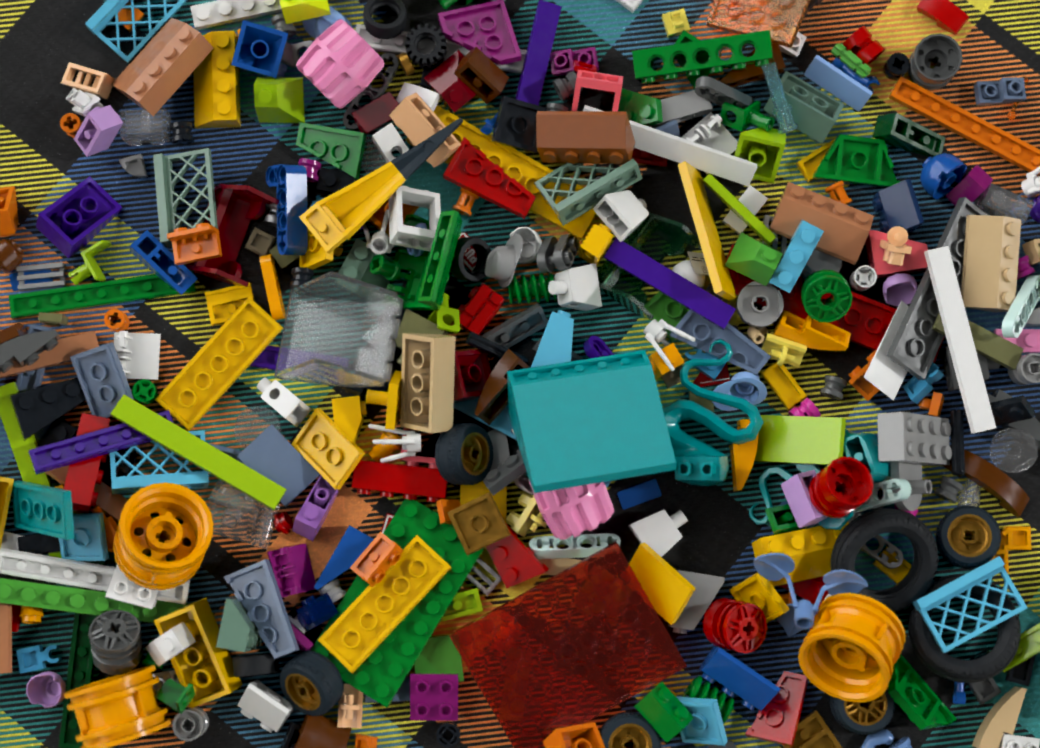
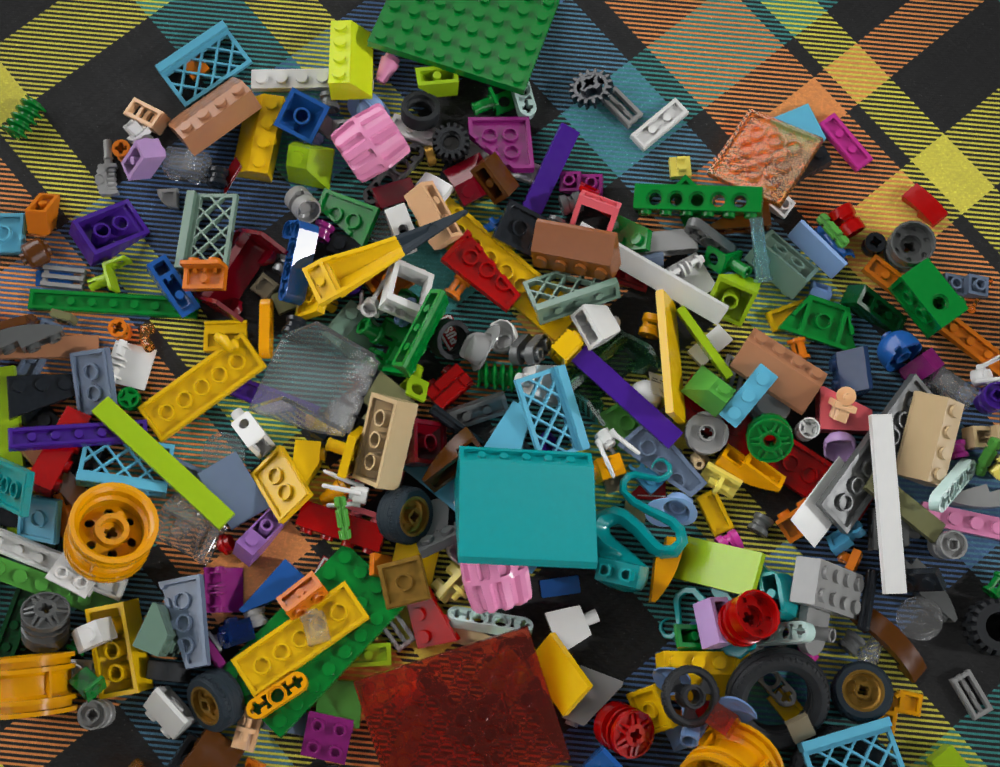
camera: 15 degrees right, 5 degrees down
(60, 156) = (106, 176): none -> light grey piece
(144, 322) = (144, 339): none -> clear orange arm
(198, 120) = (234, 169): none -> red sticker
(234, 311) = (225, 342): none -> yellow arm
(281, 145) = (302, 204): none -> light grey wheel
(357, 674) = (268, 692): none -> light orange beam
(398, 588) = (315, 627): none -> clear bracket
(400, 470) = (342, 517): none -> bright green axle
(608, 304) = (566, 403): none -> medium azure fence
(678, 202) = (650, 326): none -> light orange wheel
(777, 570) = (673, 684): none -> black wheel
(834, 595) = (723, 720): none -> clear red brick
(849, 127) = (820, 290): none -> medium blue tile
(912, 586) = (800, 728): none -> dark tan tile
(964, 114) = (928, 298): none -> green piece

